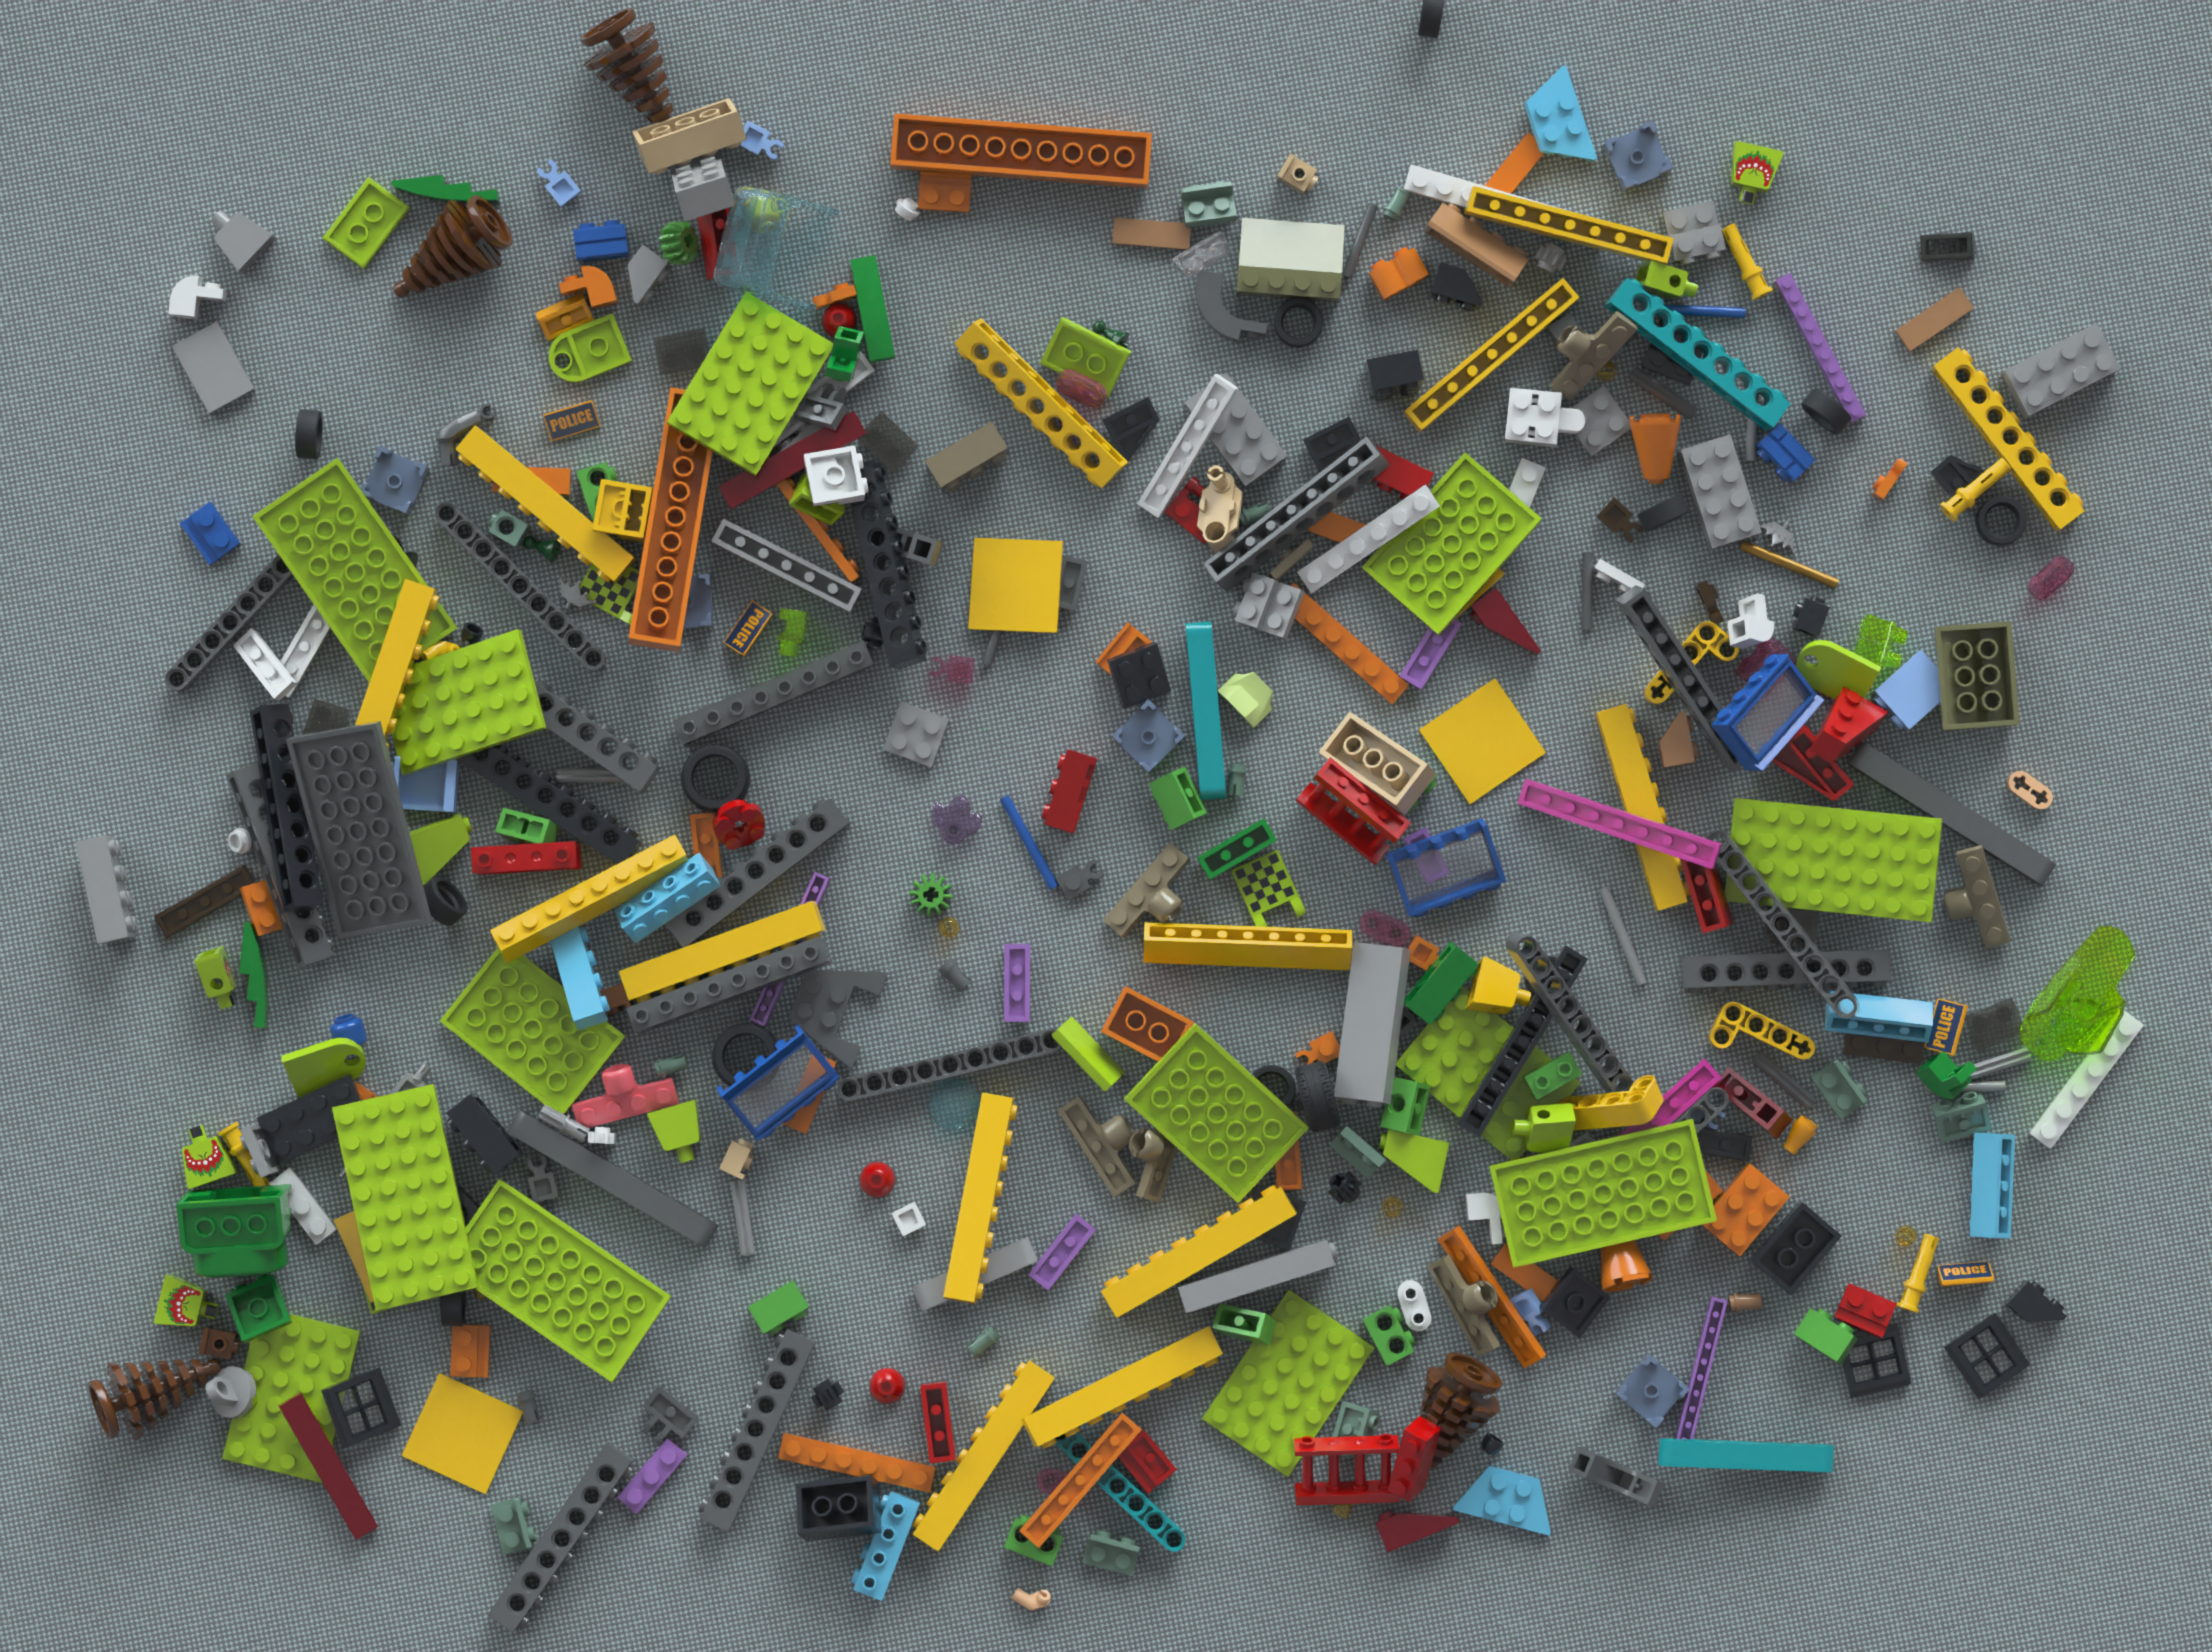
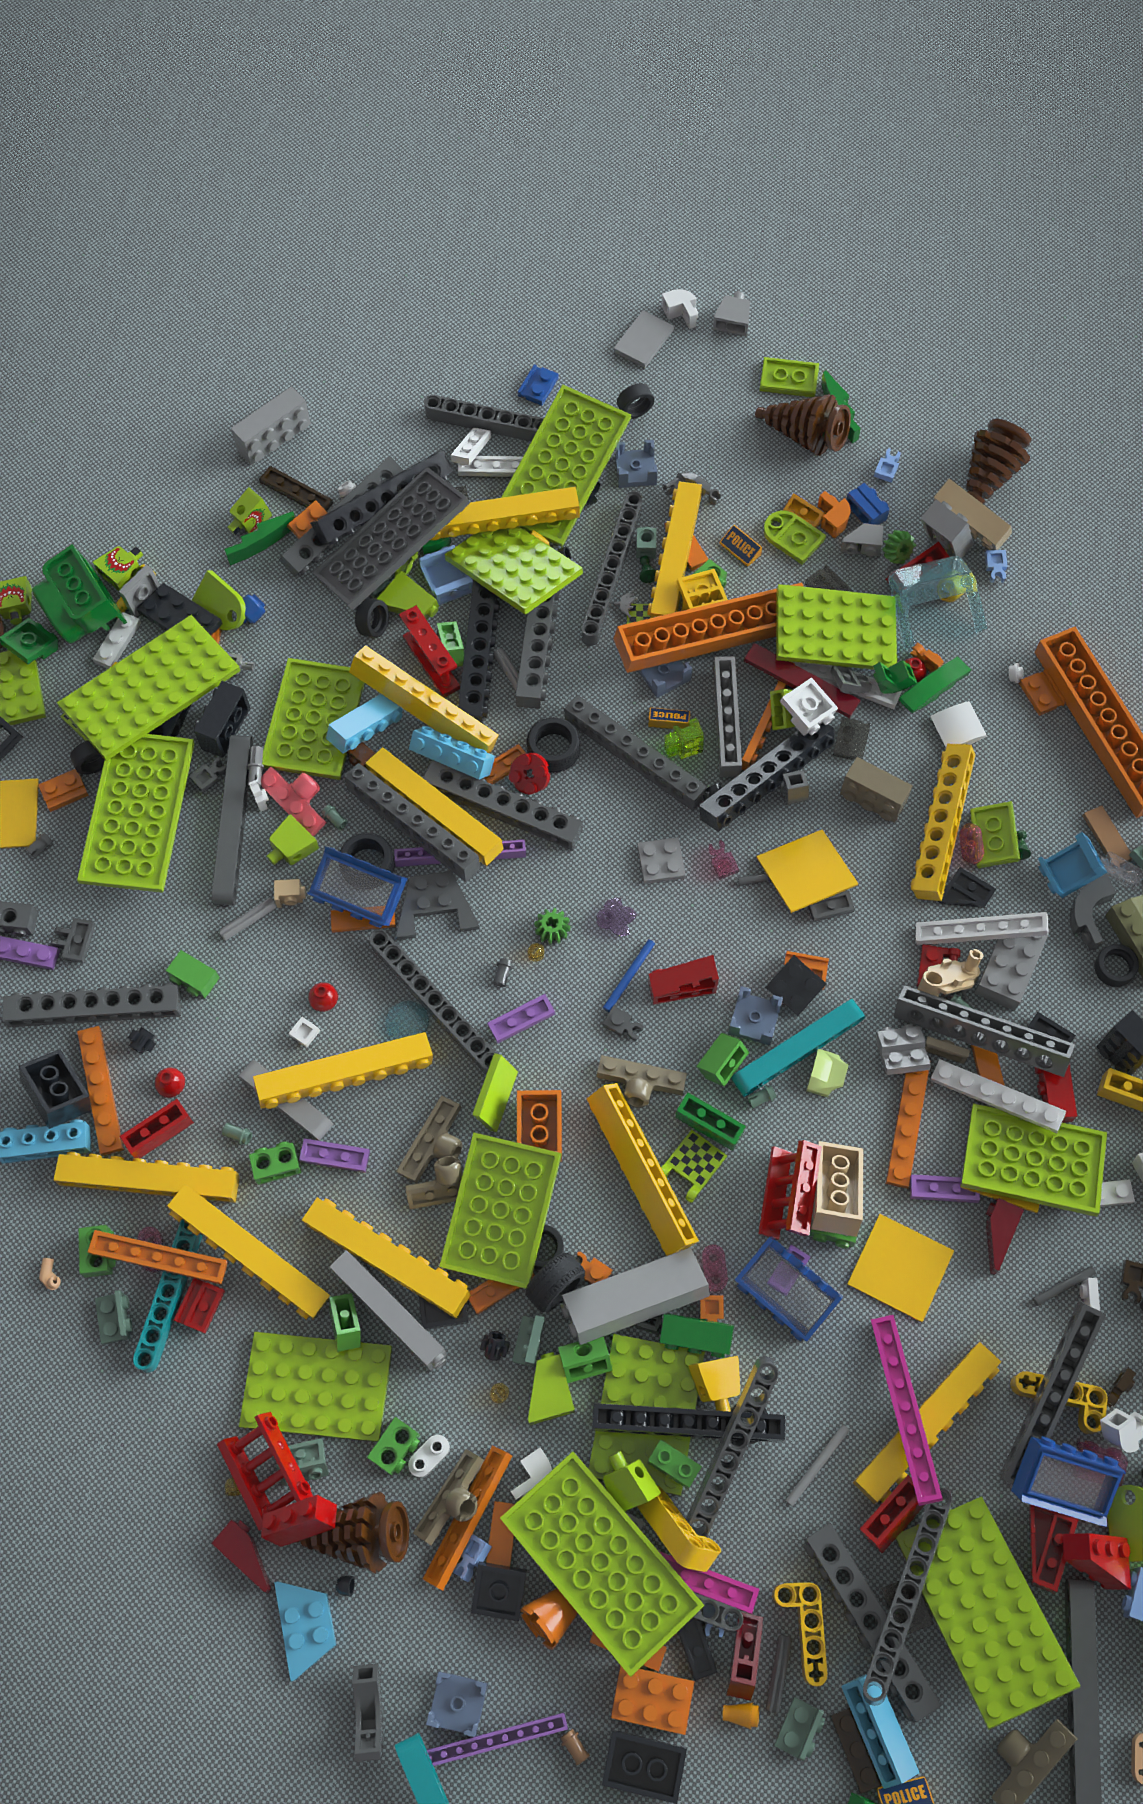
camera: 60 degrees right, 20 degrees down
(935, 313) = (958, 725): none -> white slope
(1044, 1318) = (275, 1169): none -> bright green brick
(1169, 302) = (1072, 867): none -> dark azure panel
(1676, 744) = (993, 1422): medium nougat slope -> none

